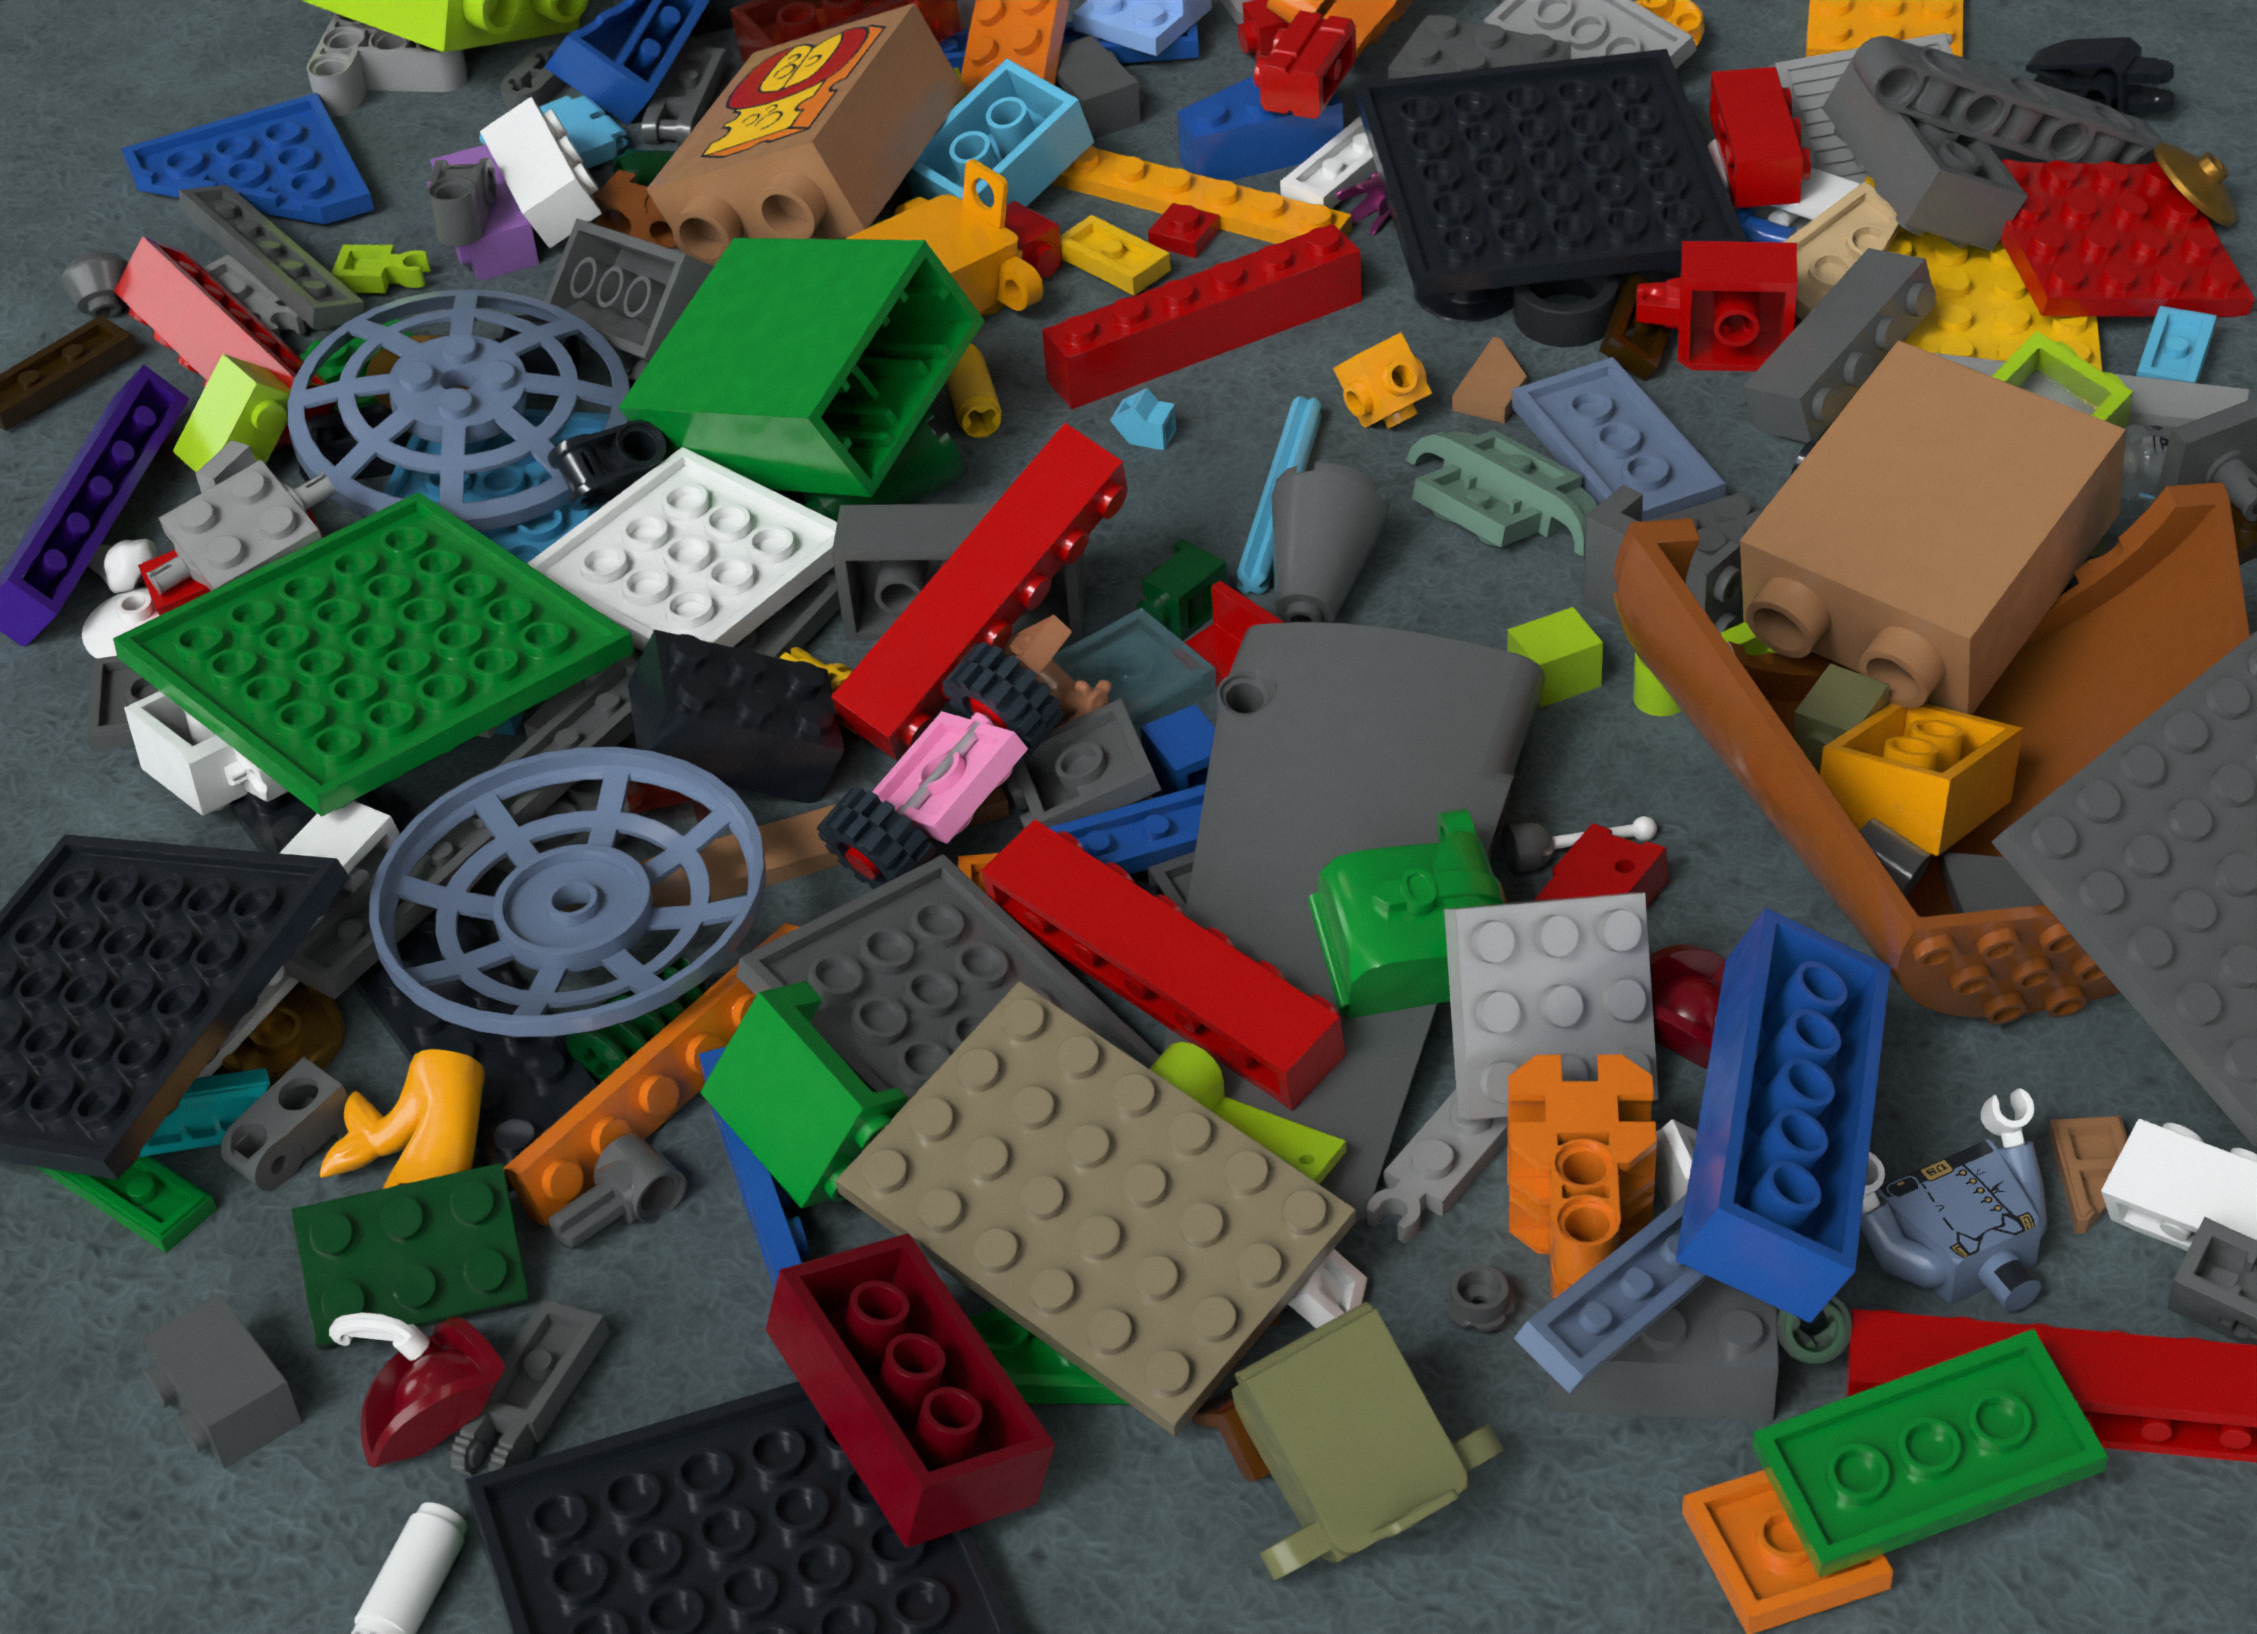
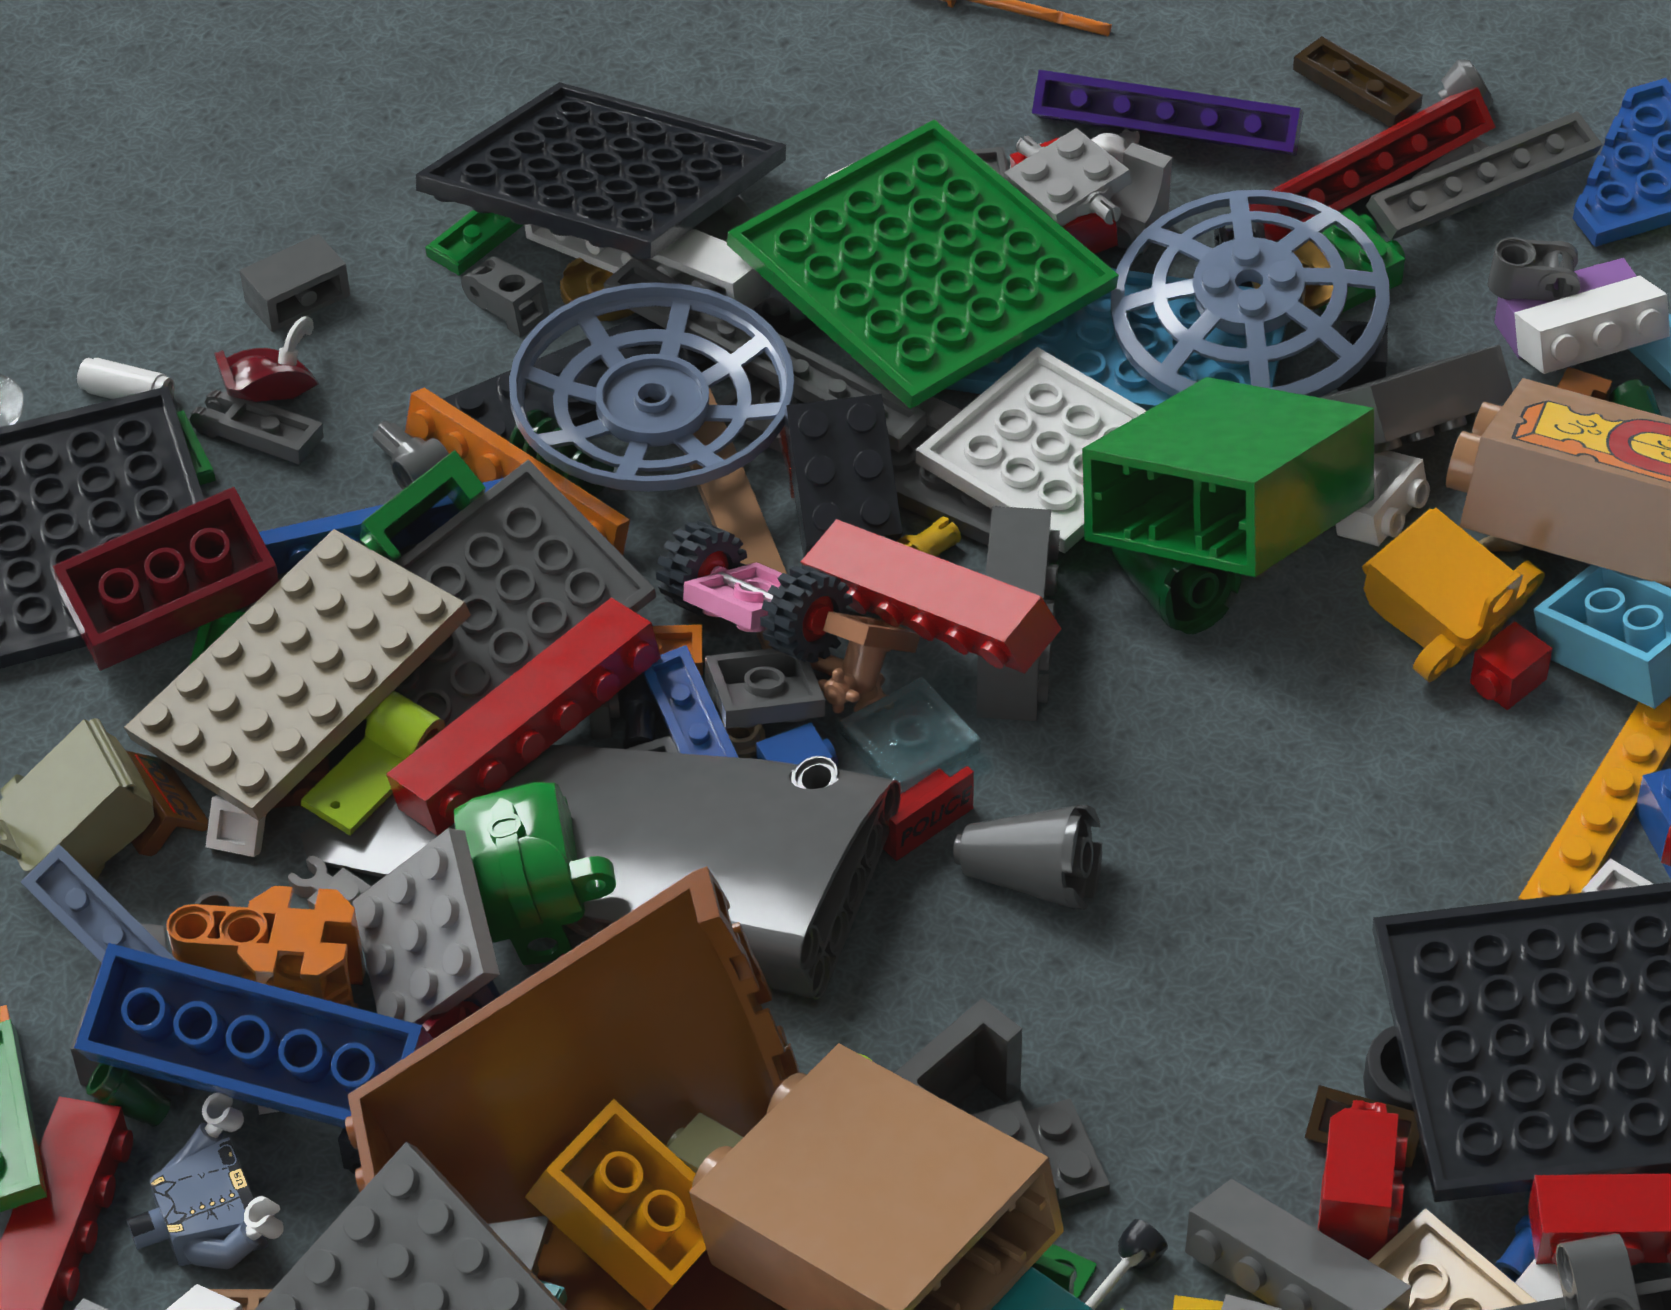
camera: 90 degrees right, 5 degrees up
(207, 1111) = (518, 245): teal plate -> none
(238, 405) = (1253, 168): lime brick -> none
(376, 266) = (1483, 242): lime plate -> none
(412, 1252) = (370, 356): dark green plate -> none
(430, 1122) = (487, 350): light orange piece -> none
(598, 463) = (1155, 378): black piece -> none
(974, 395) = (1302, 637): yellow piece -> none
(1114, 255) = (1502, 736): yellow plate -> none
(1145, 420) = (1247, 755): medium azure piece -> none
(1180, 589) = (1004, 769): dark green brick -> none
(1184, 230) = (1551, 794): red plate -> none
(1202, 315) = (1388, 790): red brick -> none
(1293, 450) = (1181, 855): medium azure axle -> none
(1383, 382) = (1270, 912): light orange brick -> none
(1489, 384) = (1297, 1013): medium nougat tile -> none
(1500, 488) = (1122, 999): sand green plate -> none
(1565, 652) = (885, 1014): lime brick -> none
(1615, 437) = (1186, 1094): sand blue plate -> none
(1898, 855) = (524, 1159): dark grey beam -> none

